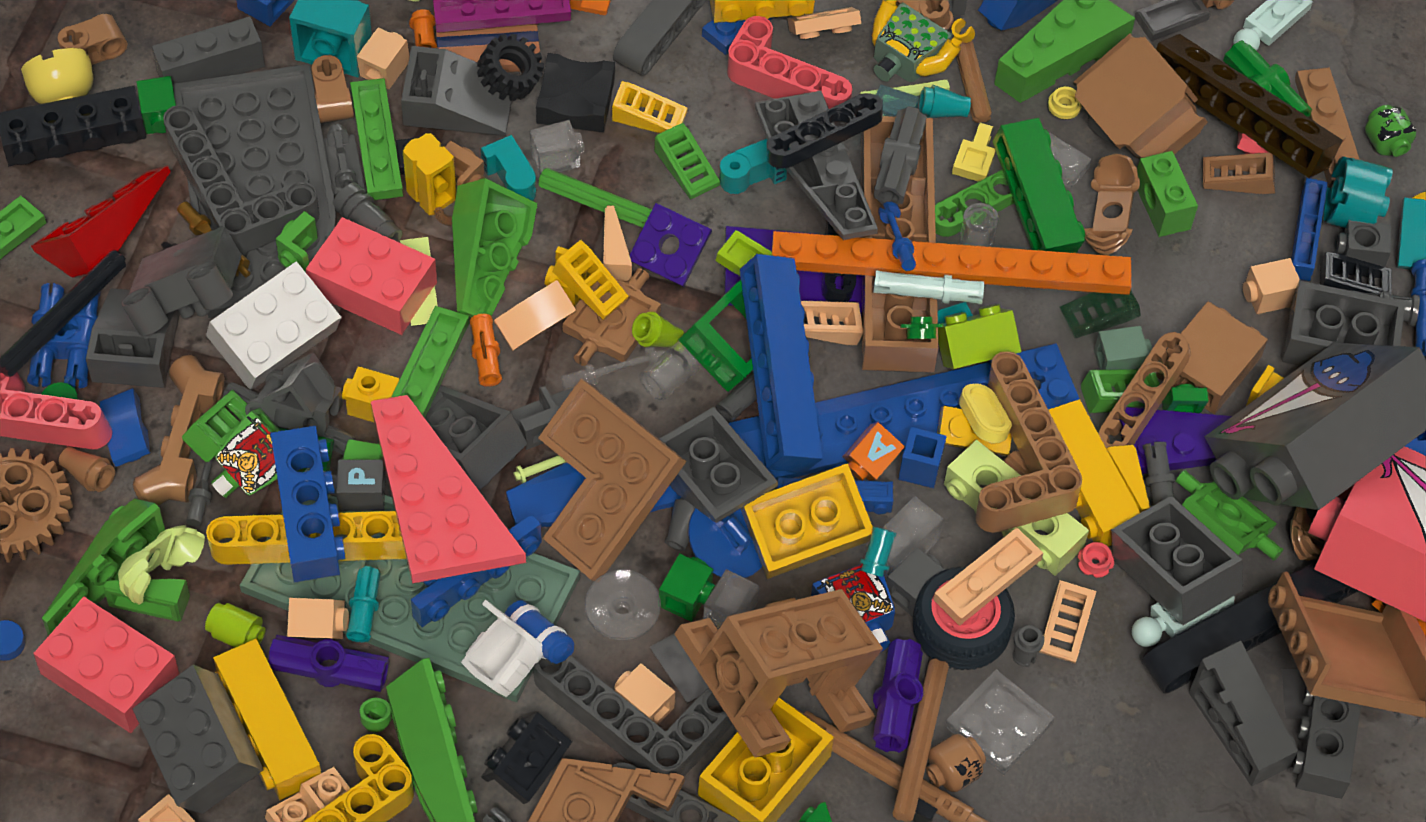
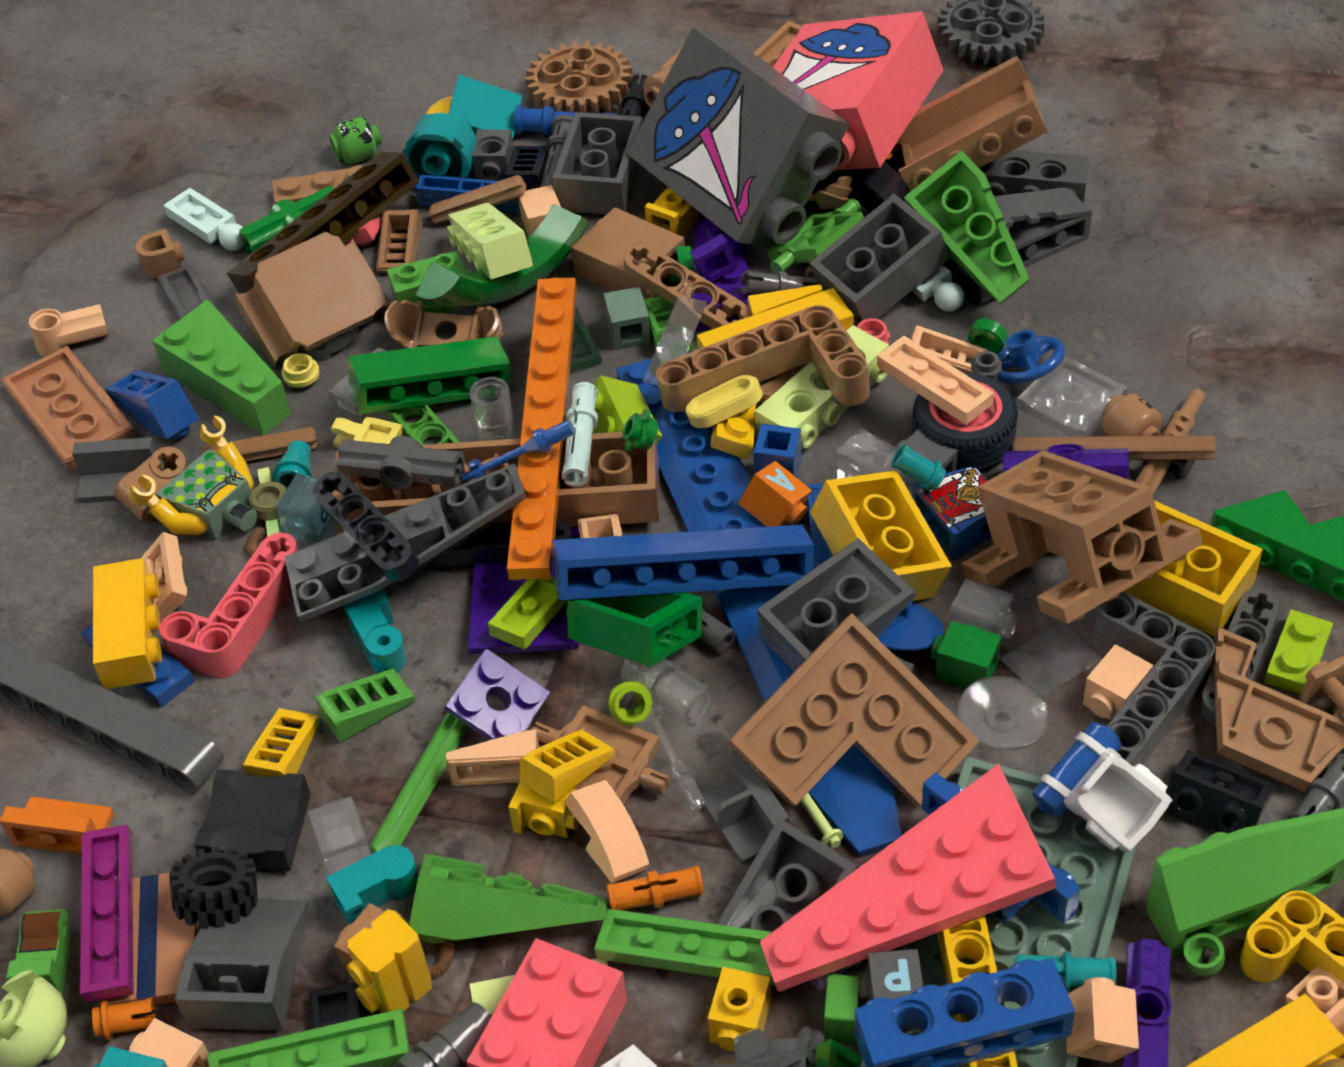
camera: 85 degrees left, 10 degrees down
(869, 84) = (253, 540): none -> medium nougat leg
(906, 82) = (265, 499): none -> olive tile
(1054, 684) = (1024, 351): none -> blue piece
(1077, 383) = (677, 334): none -> clear piece
(1086, 657) = (988, 335): none -> green tile
(1175, 252) = (468, 288): none -> green brick
(1185, 418) = (714, 258): none -> dark purple plate
(1208, 229) = (489, 240): none -> yellowish green brick
(1209, 623) = (972, 225): none -> bright green wedge
(1287, 229) = (493, 193): none -> medium nougat axle

